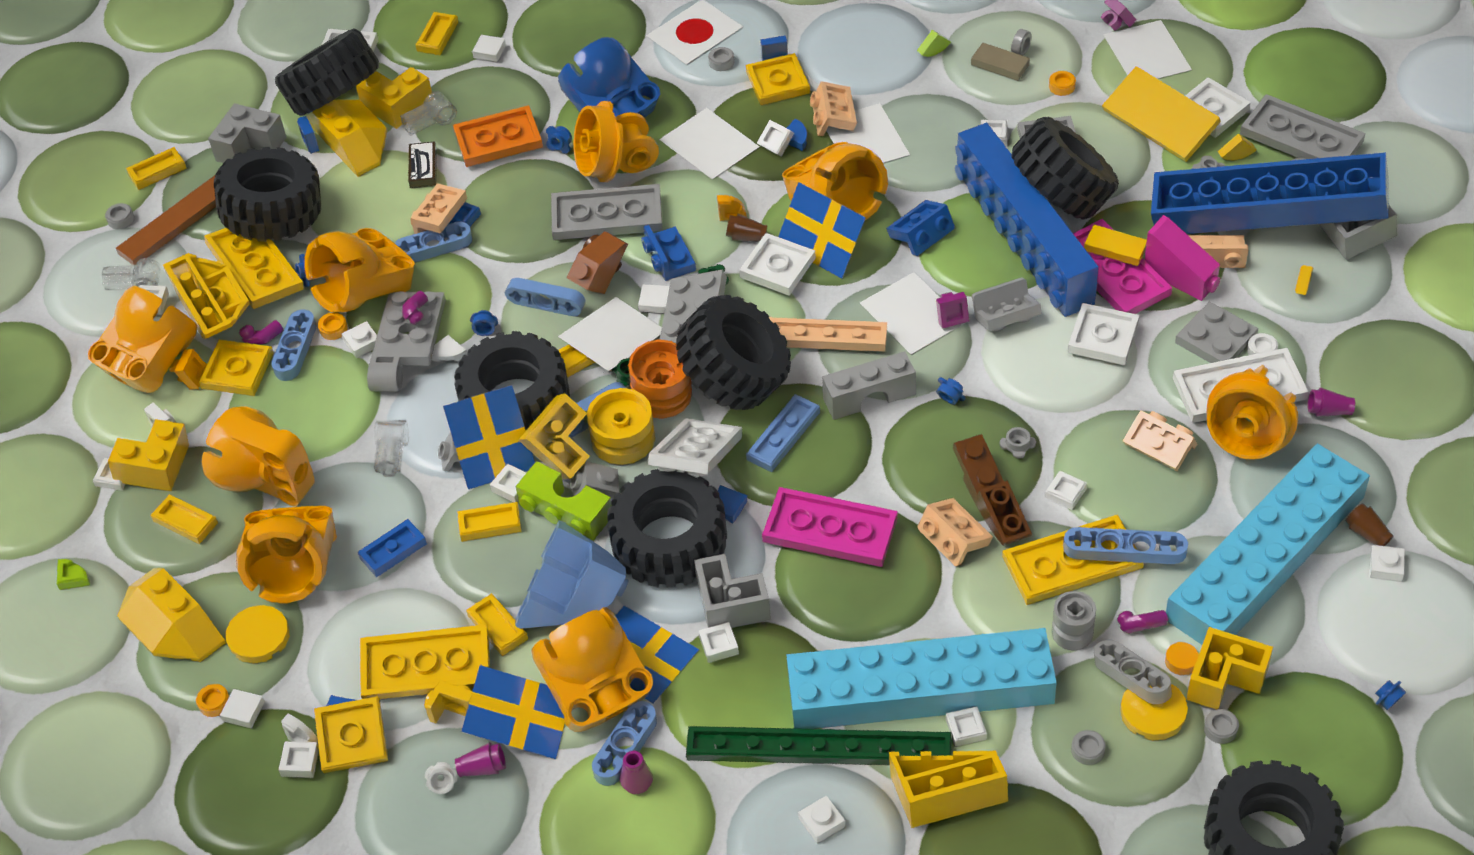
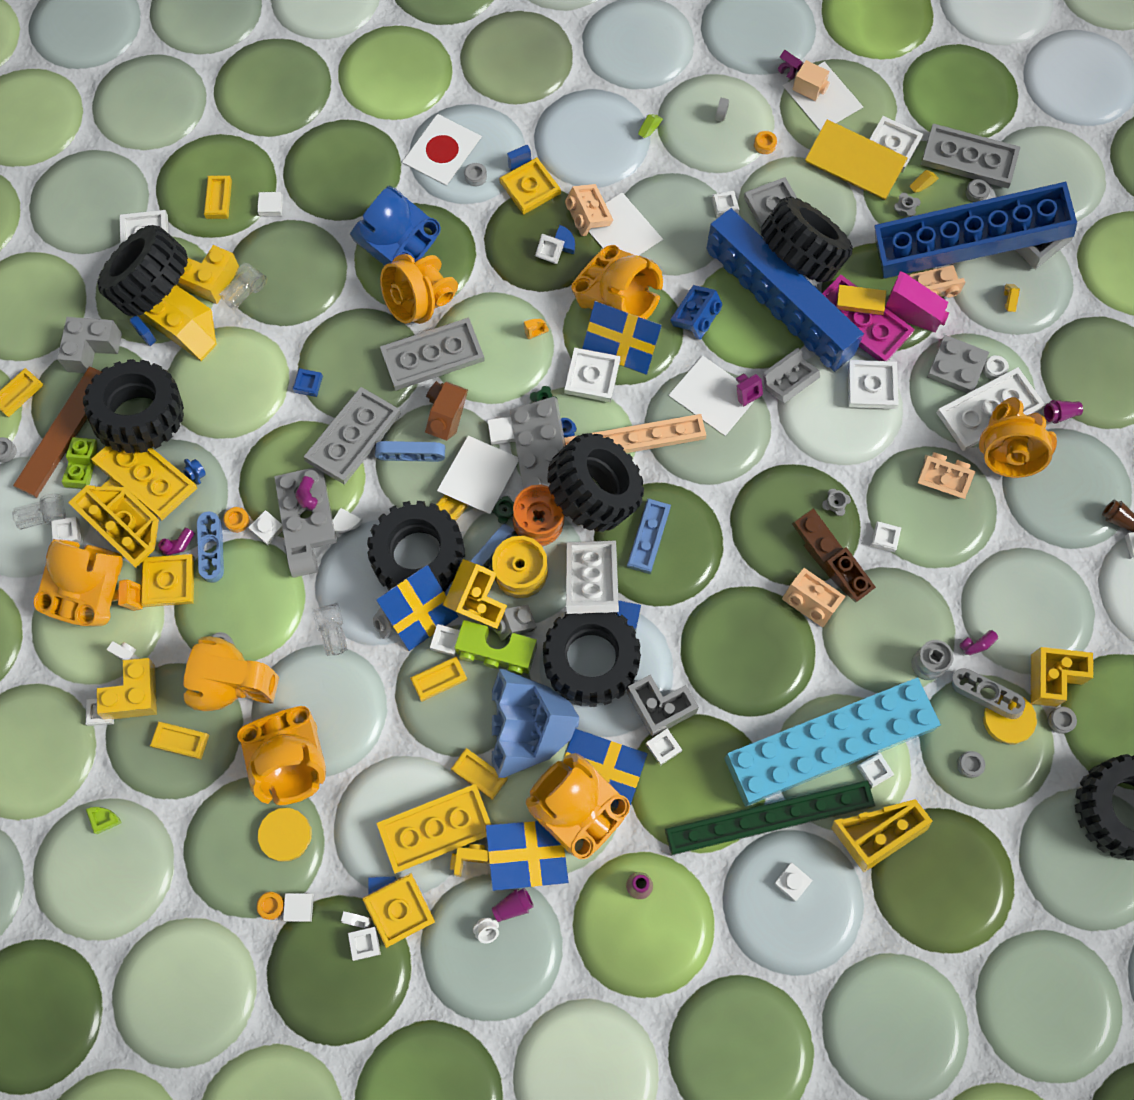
camera: 20 degrees left, 20 degrees up
(168, 618) = (201, 842): yellow wedge -> none
(192, 238) = (80, 465): none -> lime slope
(356, 268) = (243, 464): light orange piece -> none
(392, 548) = (368, 726): blue plate -> none
(422, 164) = (255, 338): tile -> none
(425, 252) = (292, 426): medium blue beam -> none
(438, 209) = (288, 386): light nougat bracket -> none
(483, 323) = (366, 488): blue plate -> none
(487, 268) = (352, 435): none -> light grey plate
(497, 136) = (311, 296): orange plate -> none
(562, 135) = (366, 288): blue plate -> none
(624, 728) = (631, 837): medium blue beam -> none
(668, 252) = (498, 382): blue bracket -> none
(709, 143) = (493, 262): white sticker -> none
(745, 229) = (554, 346): reddish brown cone -> none
(830, 526) = (716, 617): dark pink plate -> none
(847, 388) = (694, 484): light grey arch -> none
(950, 390) = (771, 467): blue plate -> none
(1000, 61) = (708, 130): dark tan tile -> none
(1046, 571) = (909, 599): yellow tile -> none
(1125, 551) = (950, 582): medium blue beam -> none
(1134, 31) = (811, 80): none -> light nougat brick
(1181, 658) = (1016, 667): light orange tile -> none
(1268, 545) = (1055, 556): medium azure brick -> none

